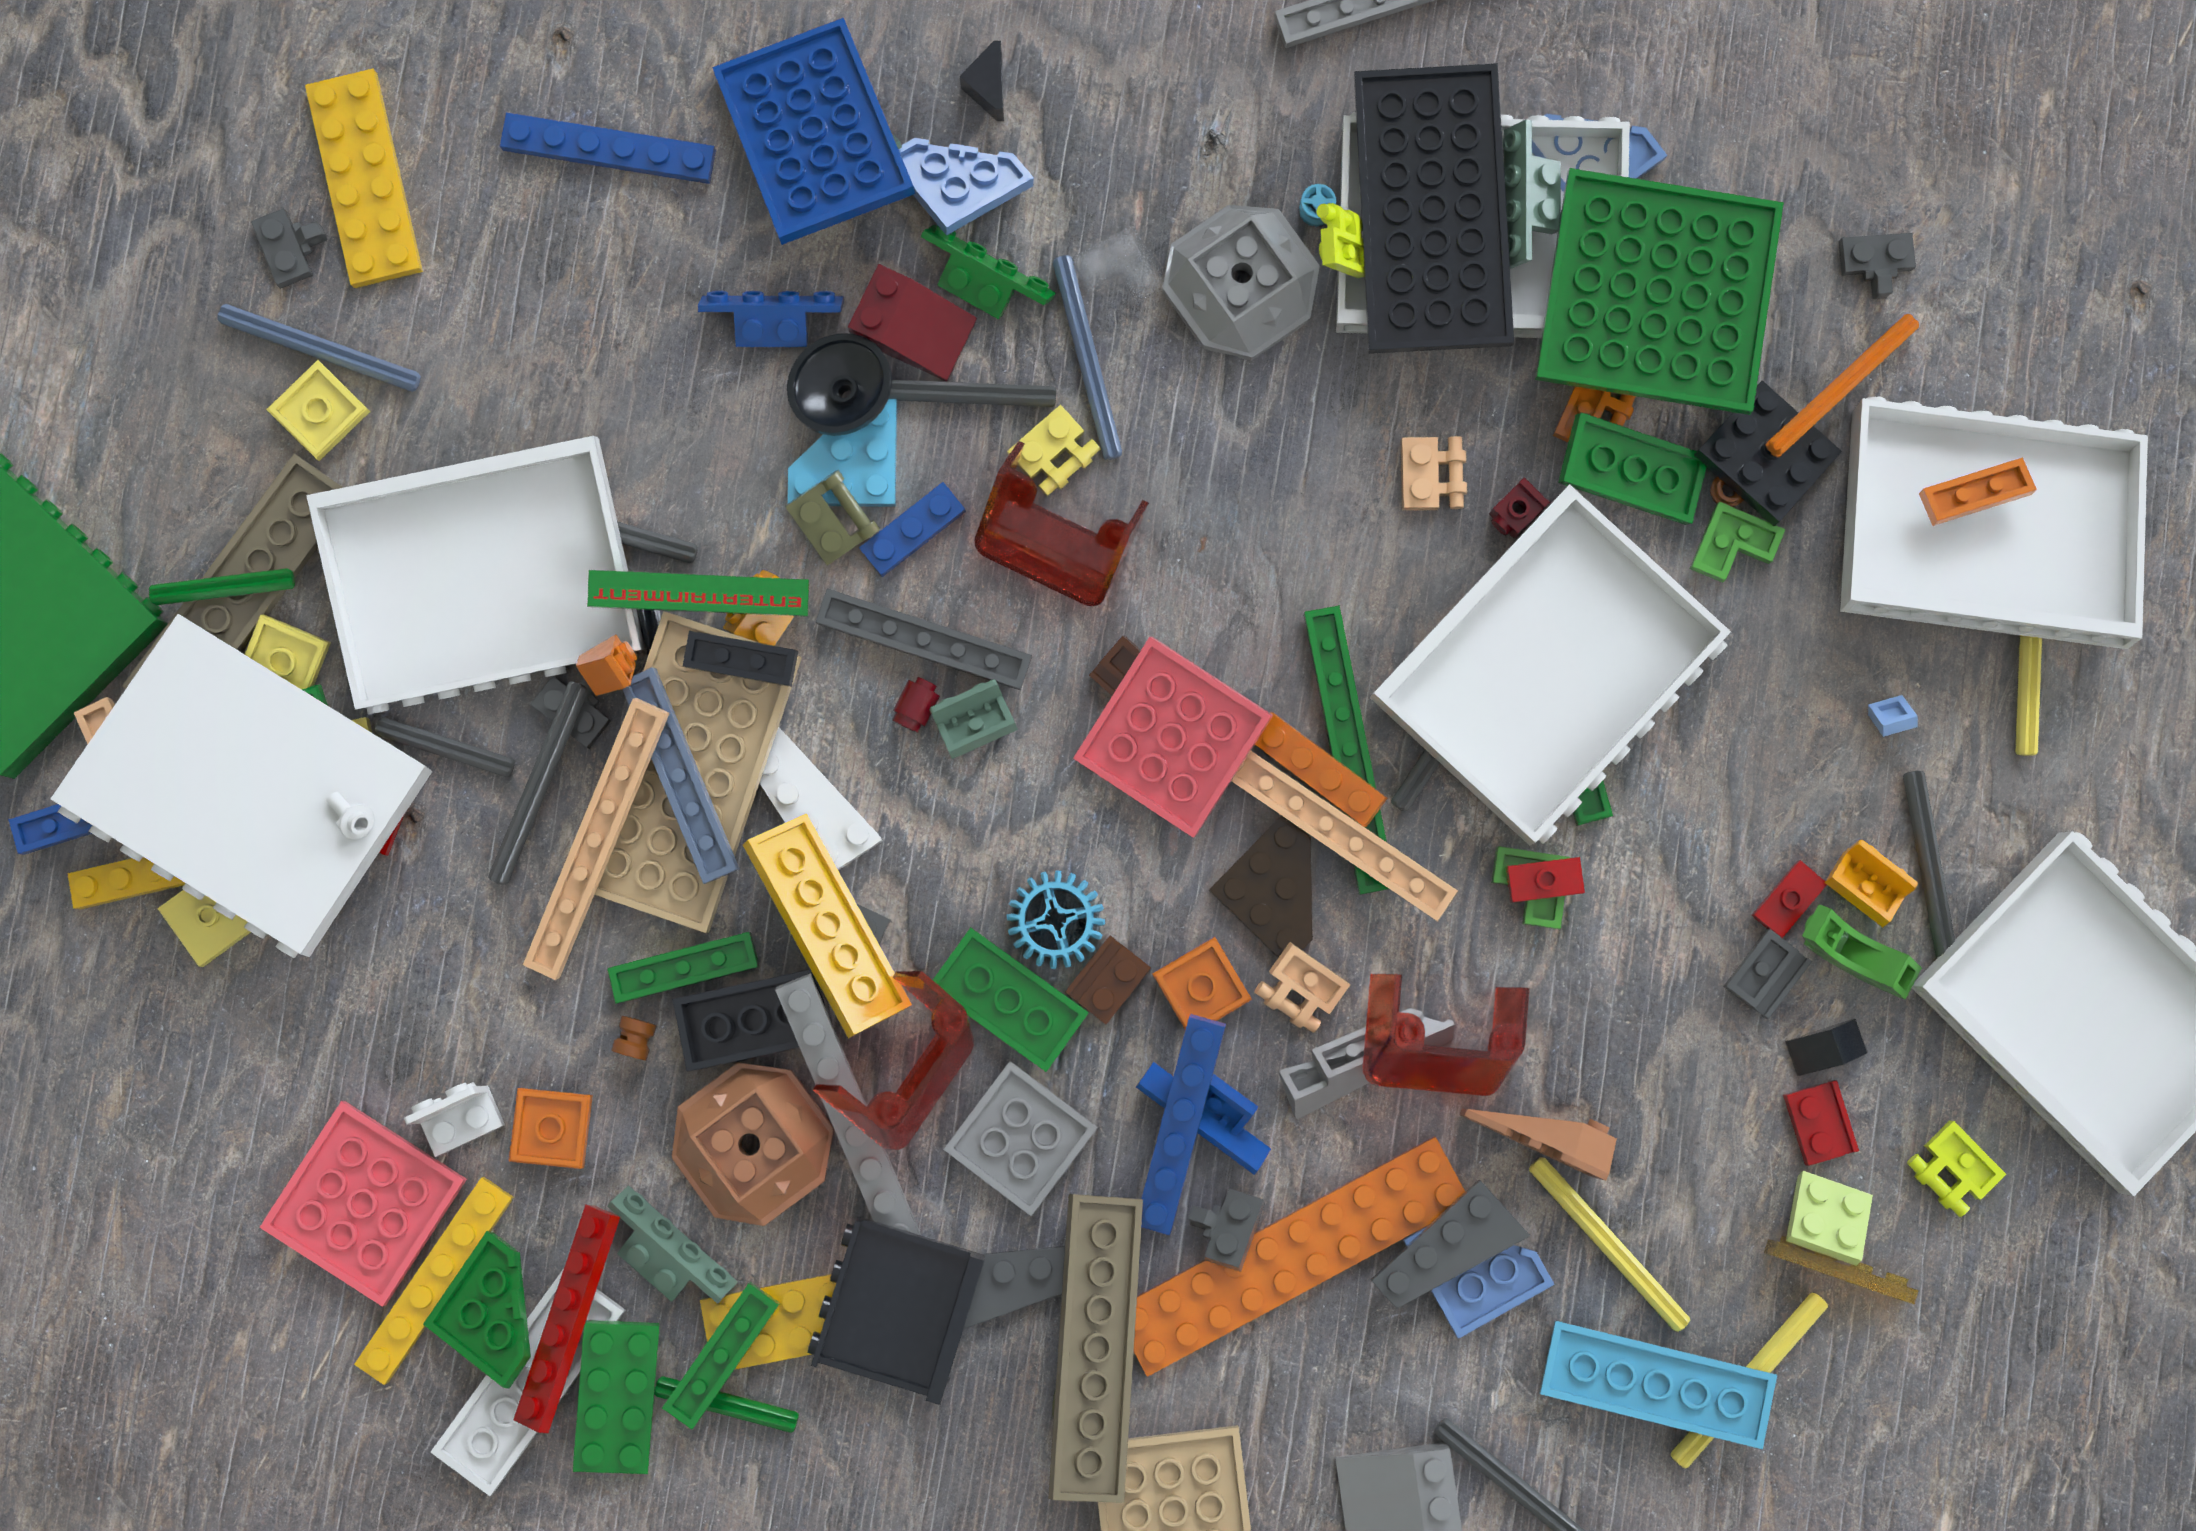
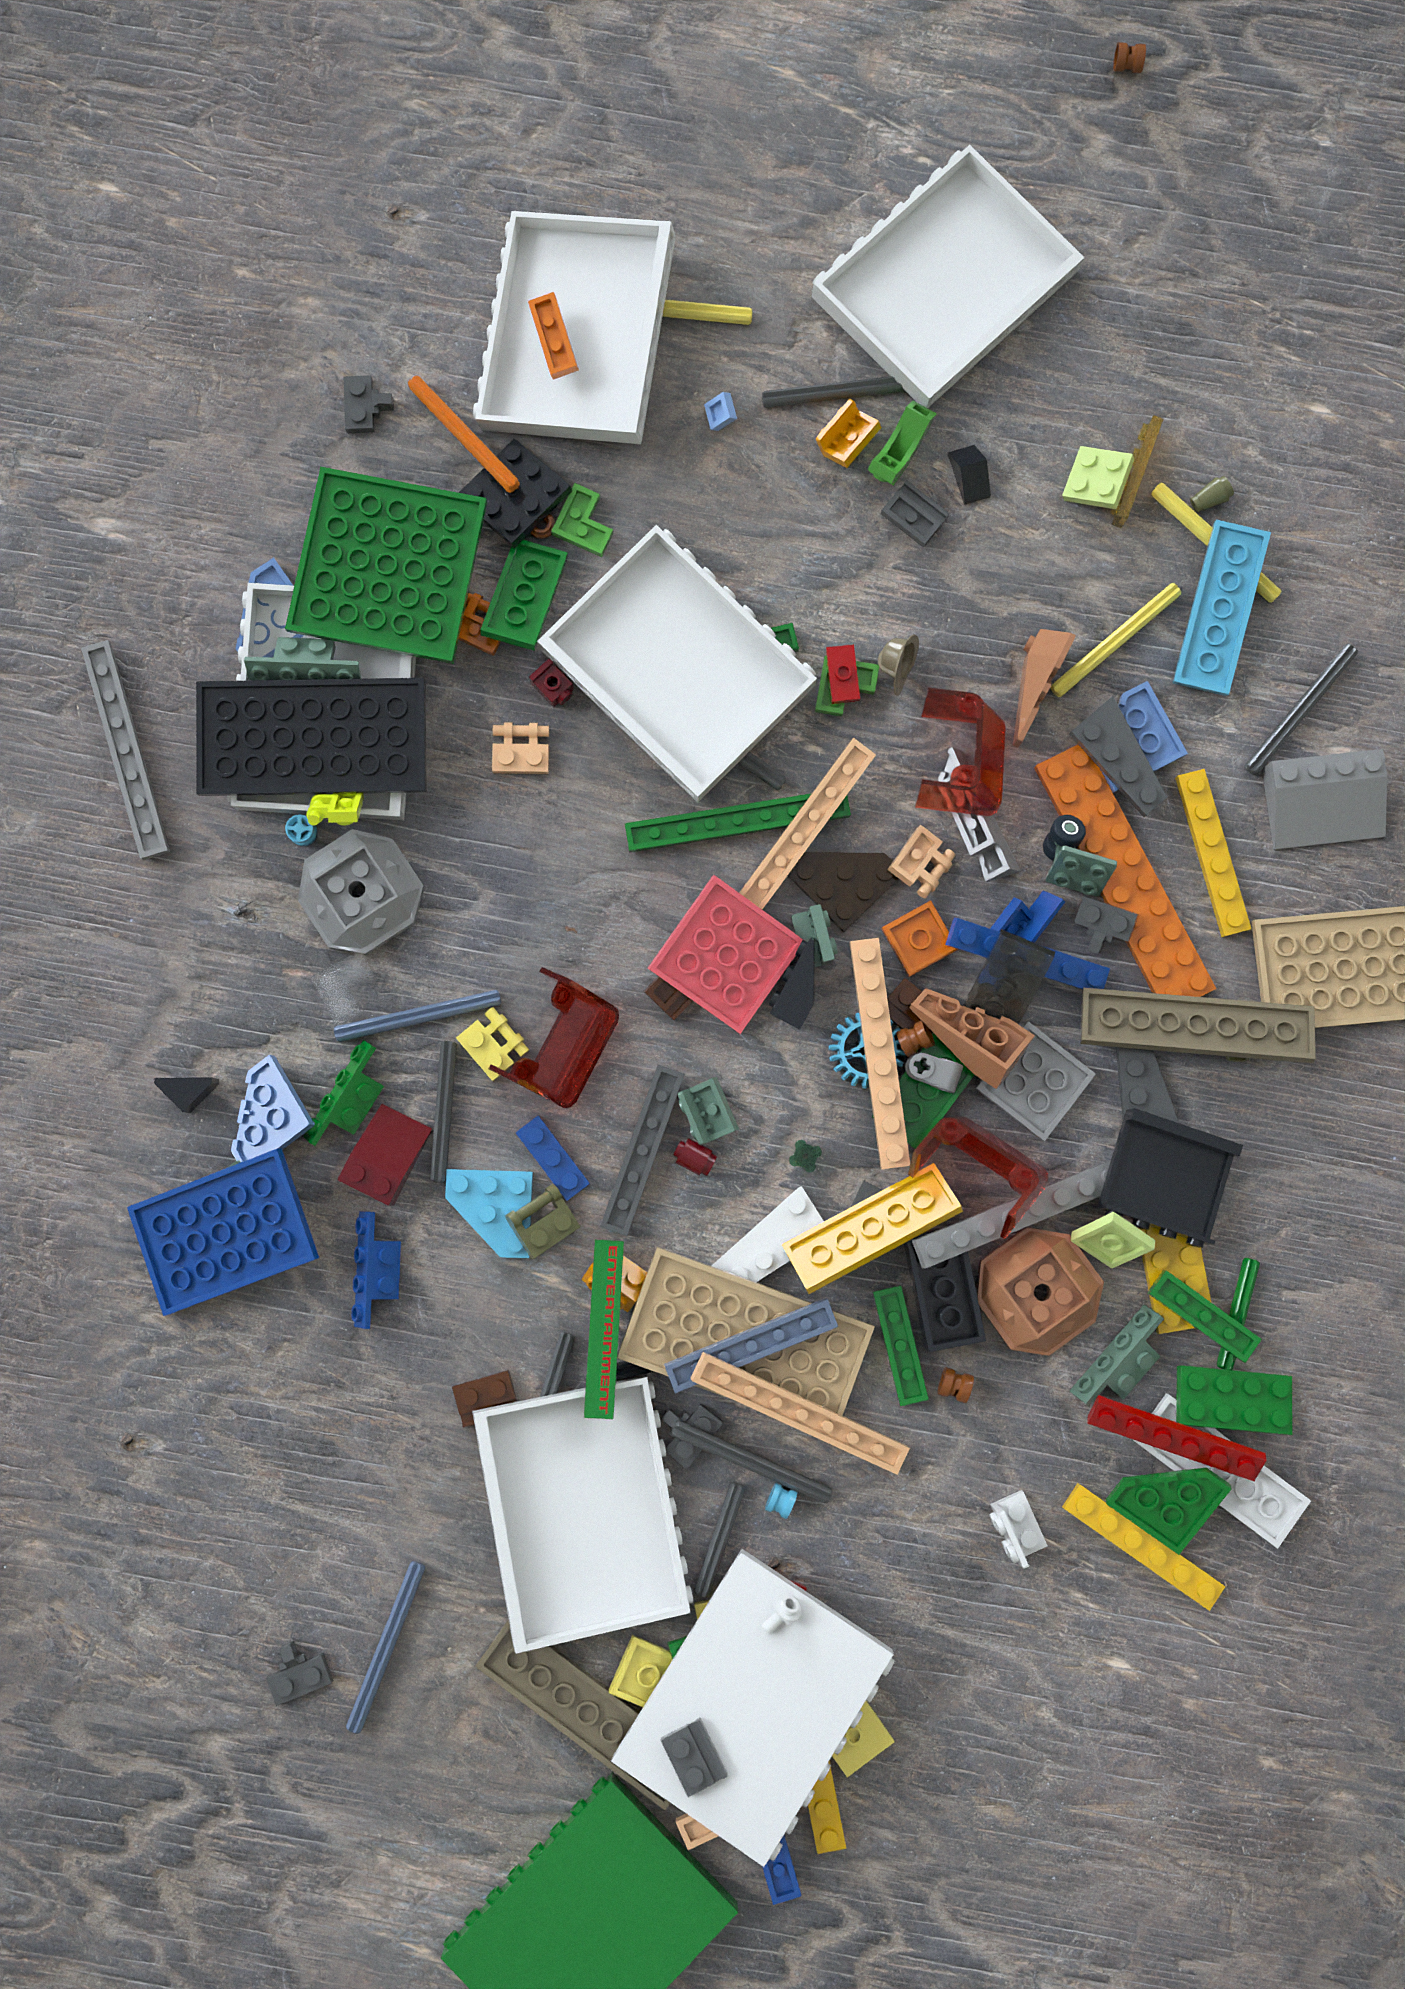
camera: 90 degrees left, 0 degrees up
(180, 711) = (694, 1757): none -> dark grey plate
(221, 586) = (585, 1726): green axle -> none
(318, 410) = (439, 1646): light yellow plate -> none
(363, 178) = (242, 1610): yellow plate -> none
(363, 1203) = (1083, 1604): coral plate -> none
(491, 820) = (781, 1500): none -> medium azure wheel
(550, 1128) = (1025, 1452): orange plate -> none
(608, 148) = (226, 1404): blue plate -> none
(608, 666) = (662, 1402): orange slope -> none
(621, 454) = (482, 1394): none -> reddish brown plate
(740, 658) = (659, 1294): black plate -> none
(816, 1235) = (1112, 1240): none -> yellowish green plate
(830, 369) = (420, 1222): black dish -> none
(923, 854) = (798, 1160): none -> clear green plate
(1026, 1010) = (938, 1073): none -> light grey piece
(1050, 932) = (879, 1053): none -> light nougat plate
(1070, 977) = (915, 1038): none -> dark orange wheel
(1070, 1059) = (979, 1041): none -> nougat wedge
(1128, 831) = (798, 994): none -> black slope
(1137, 1092) = (1009, 977): none -> clear smoke plate
(1211, 845) = (814, 924): none -> sand green bracket
(1302, 1179) = (1071, 866): none -> sand green plate
(1320, 770) = (755, 840): orange plate -> none
(1327, 1374) = (1213, 853): none -> yellow plate
(1566, 953) = (898, 659): none -> dark tan piece
(1789, 899) = (858, 495): red plate -> none
(1814, 1374) = (1213, 494): none -> olive cone
(1821, 1122) = (1026, 481): red plate -> none
(1964, 1160) = (1055, 378): neon yellow plate -> none

